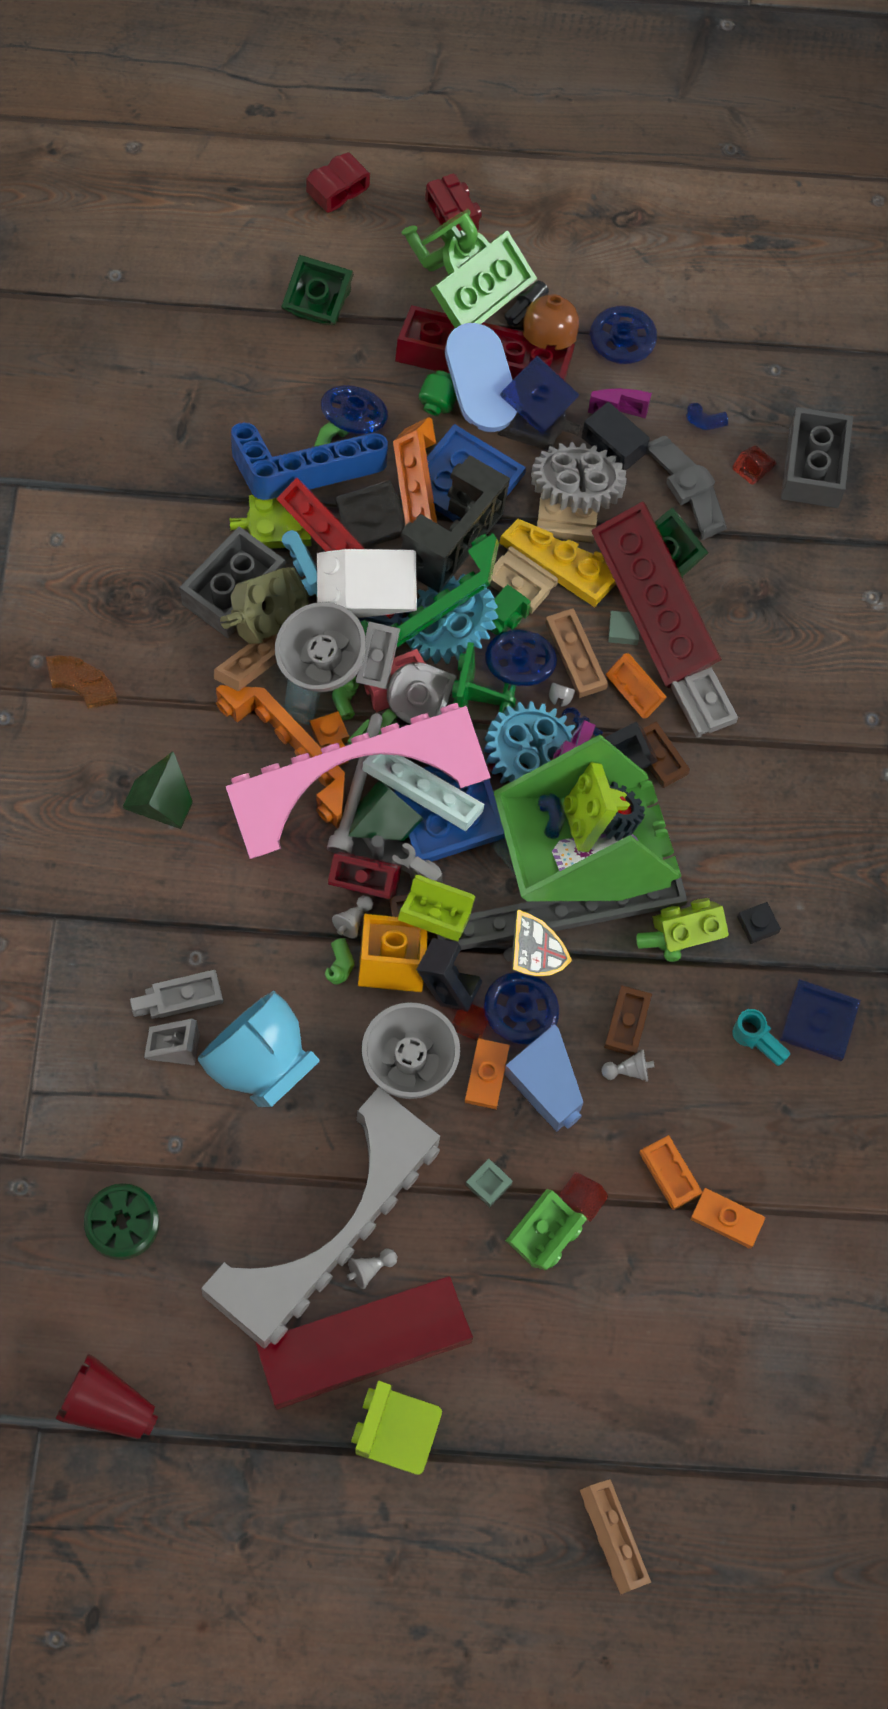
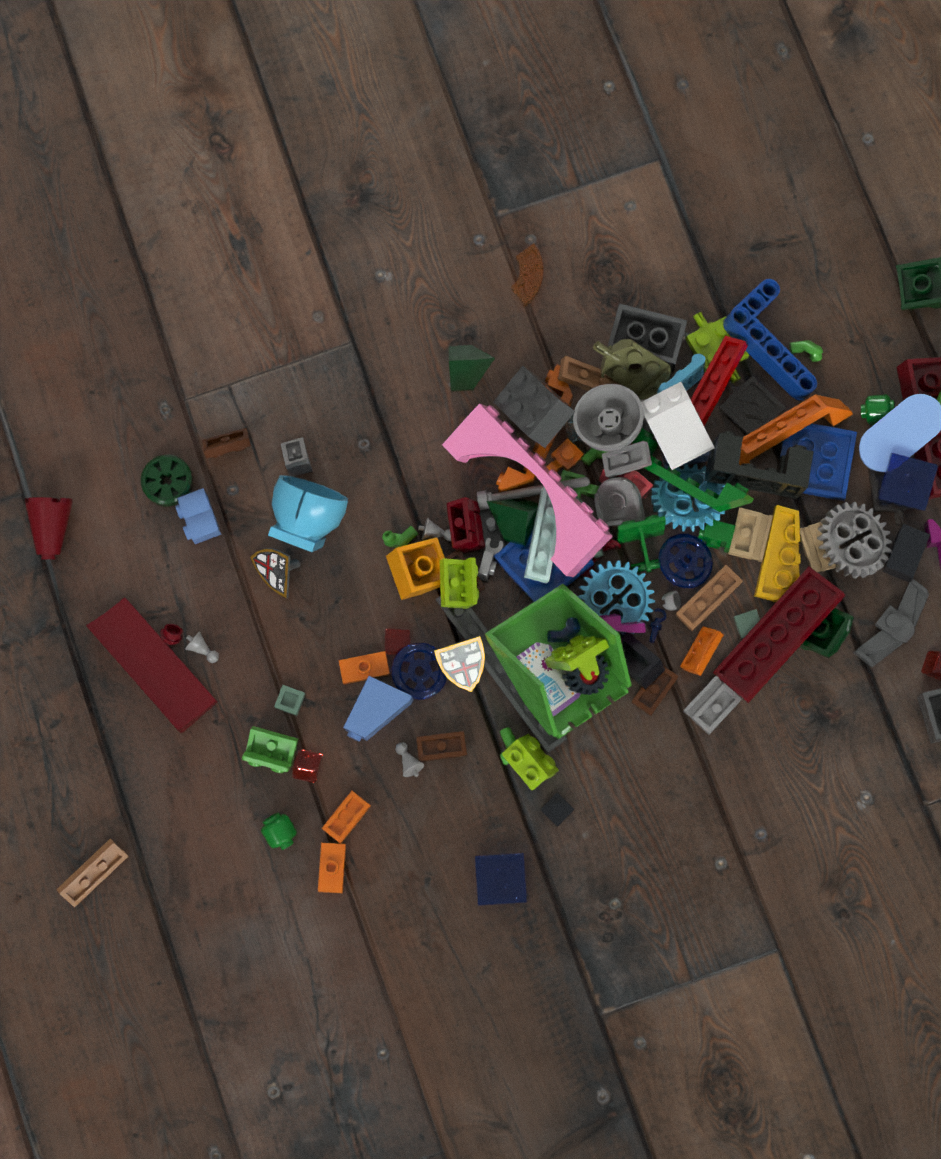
camera: 80 degrees right, 10 degrees up
(111, 1122) = (225, 443): none -> reddish brown plate
(179, 995) = (330, 446): light grey hinge -> none
(192, 1198) = (198, 516): none -> medium blue brick
(259, 729) = (534, 406): none -> dark grey brick
(268, 1297) = (282, 629): light grey arch -> none
(311, 1128) = (274, 569): none -> shield
(335, 1298) = (171, 634): none -> dark red plate
(354, 409) = (819, 365): clear blue plate -> none
(396, 1429) = (104, 707): lime bracket -> none
(405, 1034) = (340, 598): light grey piece -> none
(443, 979) = (414, 611): black panel -> none
(656, 1263) = (278, 831): none -> green head
(761, 1039) = (467, 844): teal axle -> none

